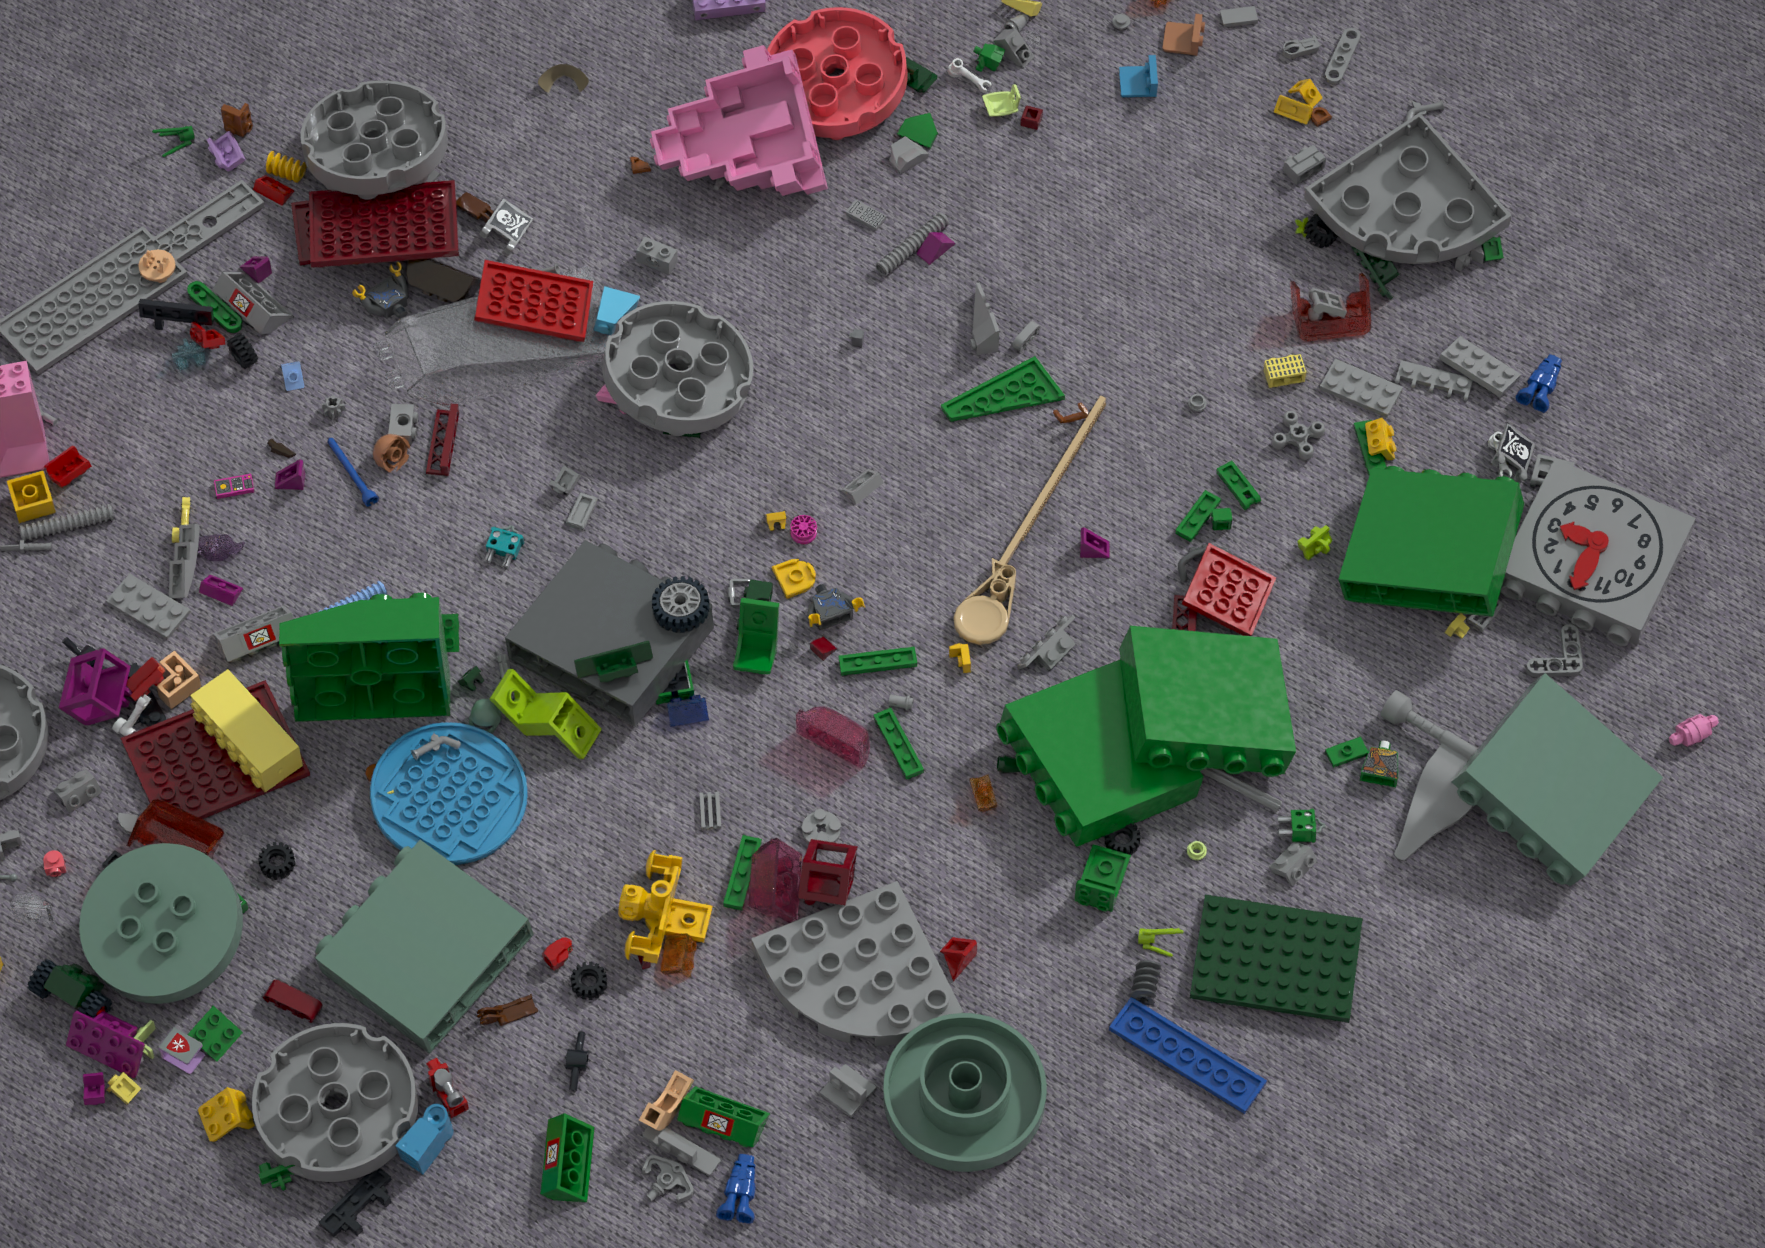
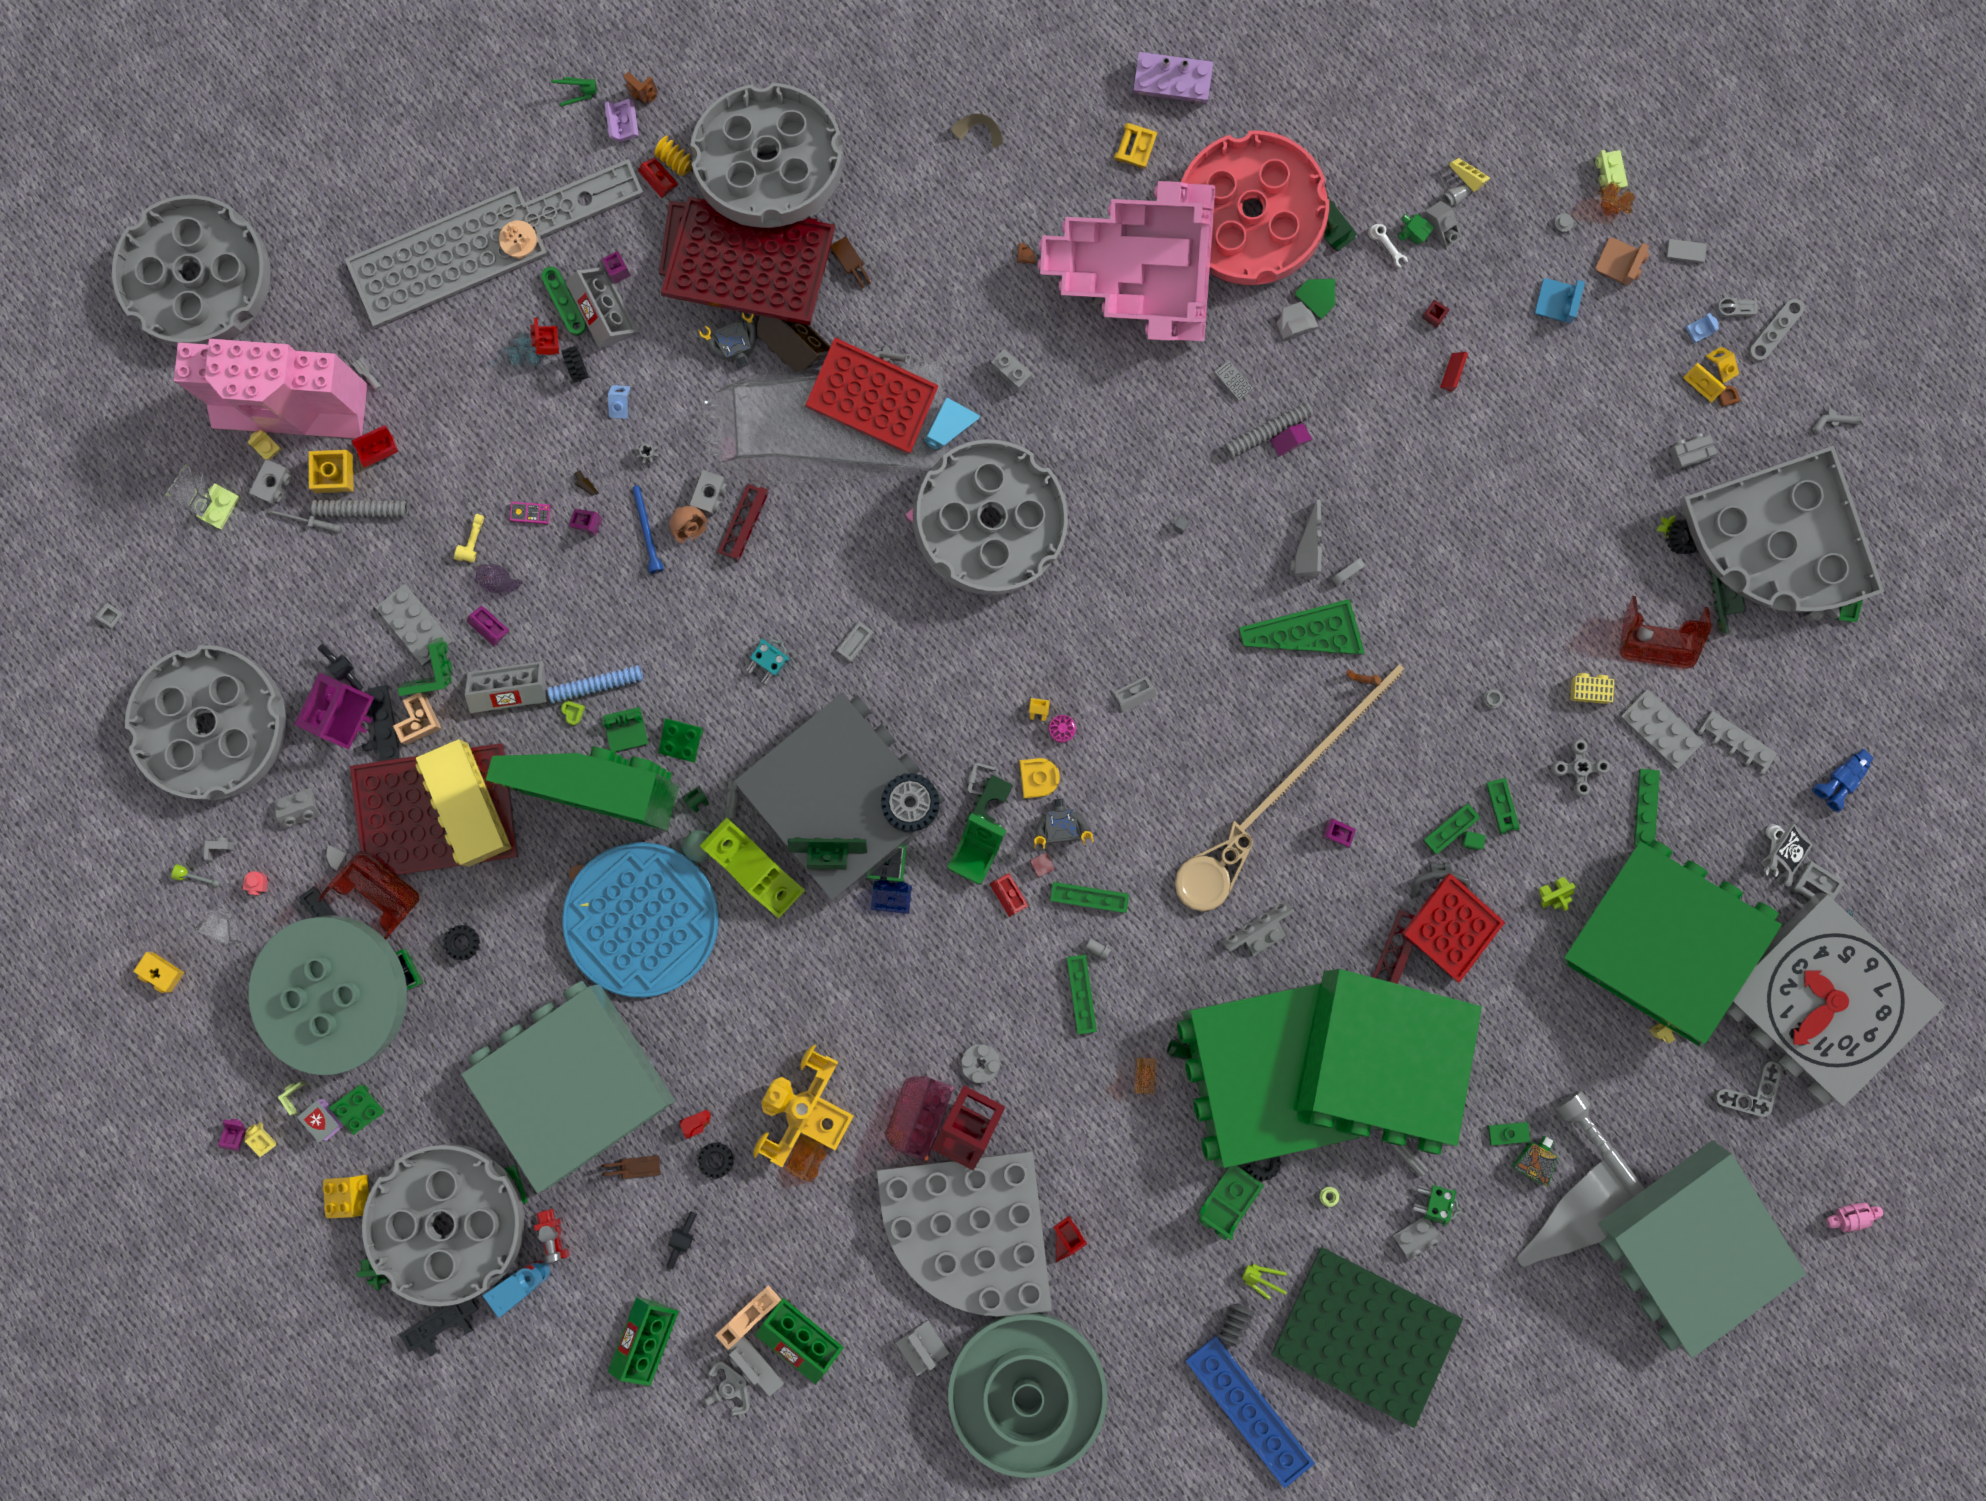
camera: 20 degrees right, 25 degrees up
(70, 985) = (234, 1029): brick -> none
(106, 1041) = (257, 1088): magenta bracket -> none
(125, 727) = (359, 754): white brick -> none
(144, 678) = (384, 716): red bracket -> none
(175, 312) = (514, 299): black hinge -> none
(184, 561) = (457, 591): light grey slope -> none
(185, 642) = (441, 669): none -> green bracket
(292, 999) = (433, 1094): dark red beam -> none
(435, 744) = (638, 869): light grey piece -> none
(508, 223) = (876, 287): flag -> none
(565, 481) = (847, 605): light grey bracket -> none
(709, 796) = (878, 1027): light grey tile -> none
(717, 58) = (1141, 148): none -> yellow plate
(740, 876) = (891, 1089): green plate -> none
(740, 1186) = (793, 1418): blue piece -> none
(799, 681) = (1009, 894): none -> red slope
(835, 734) = (1025, 969): clear pink windscreen -> none
(961, 651) = (1171, 922): yellow bracket -> none
(1002, 102) = (1411, 288): yellowish green piece -> none
(1064, 157) = (1454, 371): none -> red slope
(1276, 70) = (1702, 328): none -> light blue bracket
(1331, 303) = (1666, 626): light grey plate -> none
(1380, 438) = (1660, 797): yellow bracket -> none
(1480, 366) = (1789, 742): light grey piece -> none

